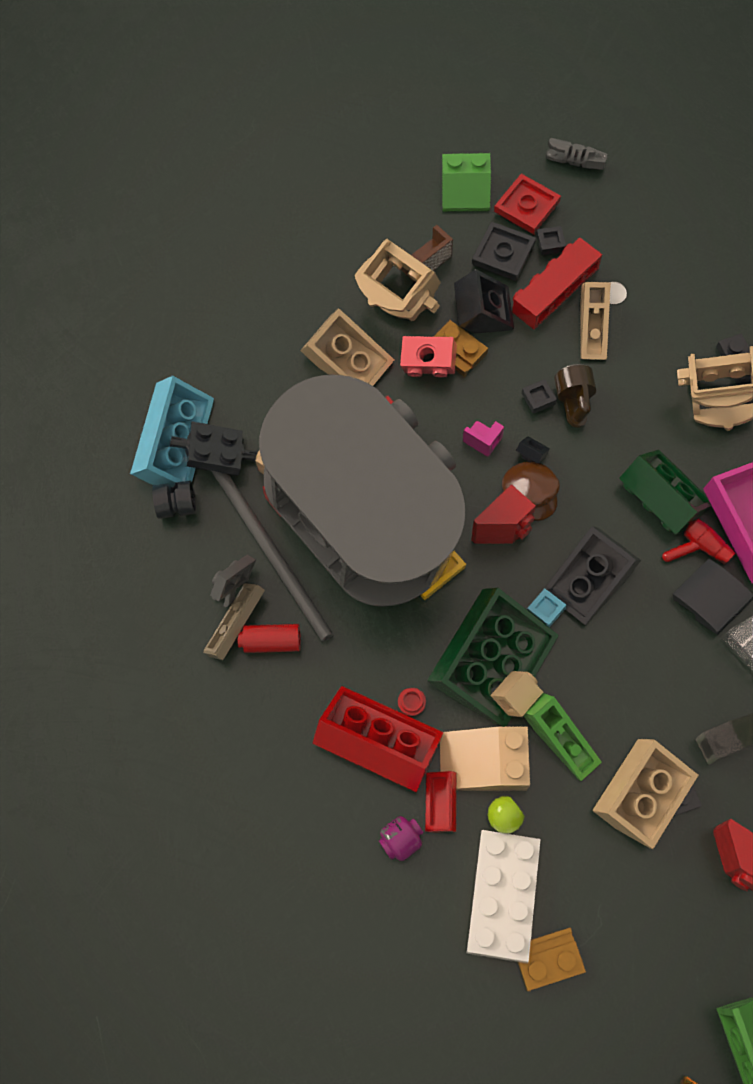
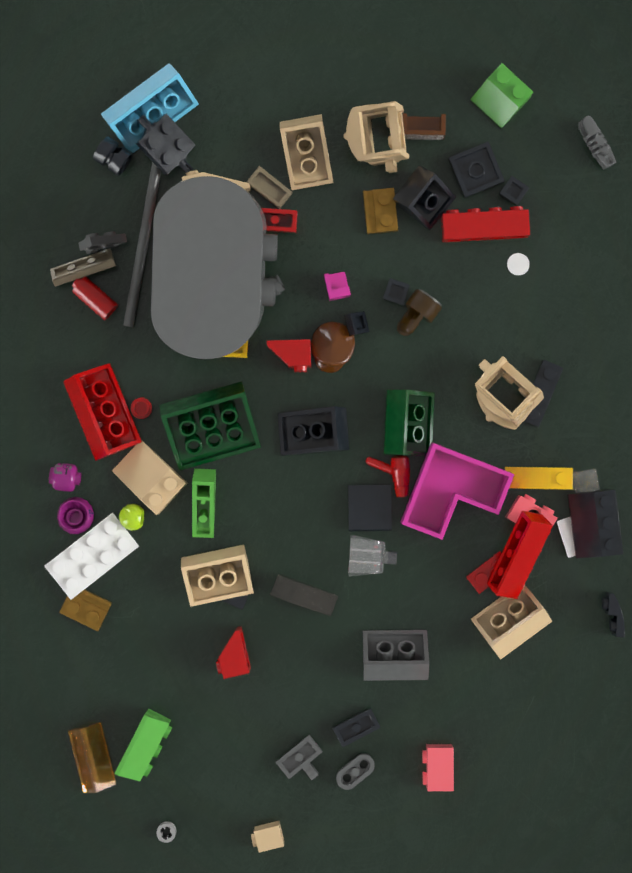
camera: 40 degrees right, 20 degrees up
(416, 348) = (364, 208): coral brick -> none
(440, 802) = (104, 477): red tile -> none
(453, 877) = (81, 517): none -> magenta hat
(517, 693) = (200, 459): tan brick -> none
(527, 203) = (527, 149): red plate -> none
(546, 607) = (268, 426): medium azure plate -> none
(594, 319) = (481, 273): tan slope -> none

